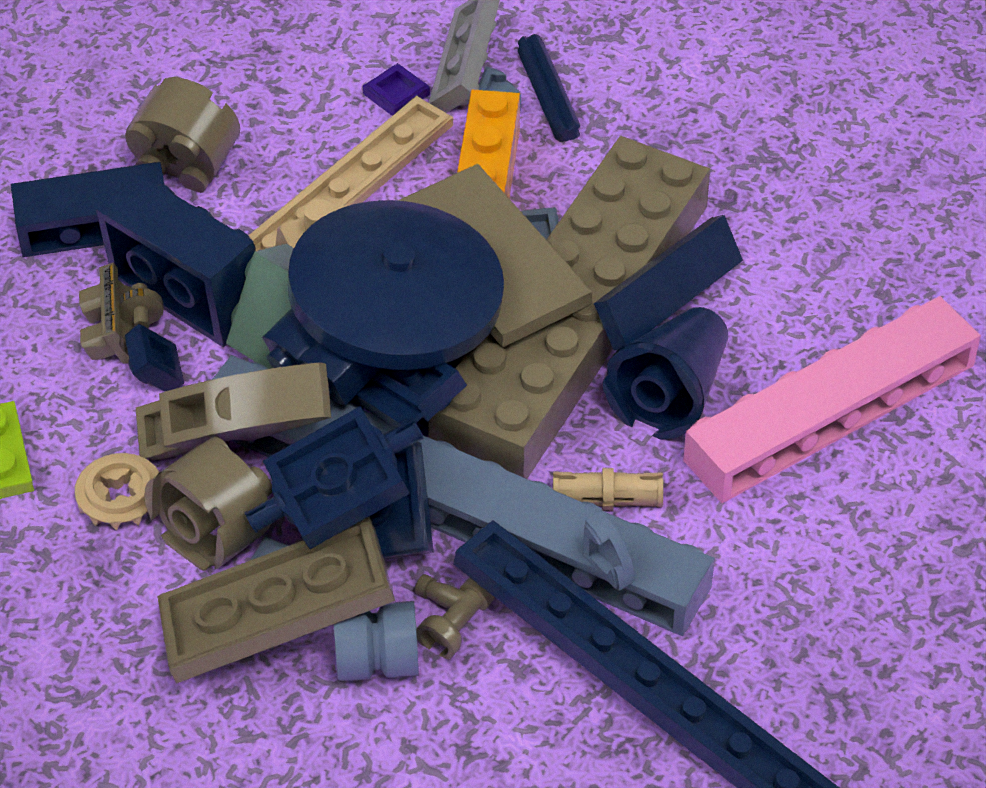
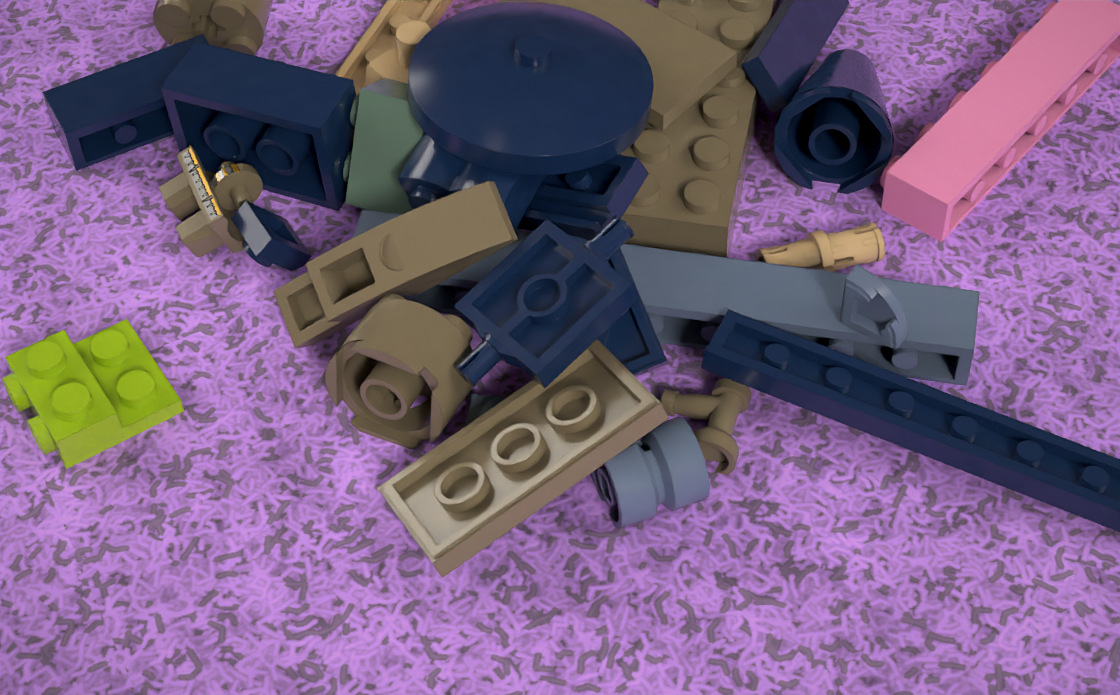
camera: 15 degrees left, 0 degrees up
(114, 472) = (270, 368): tan gear -> none

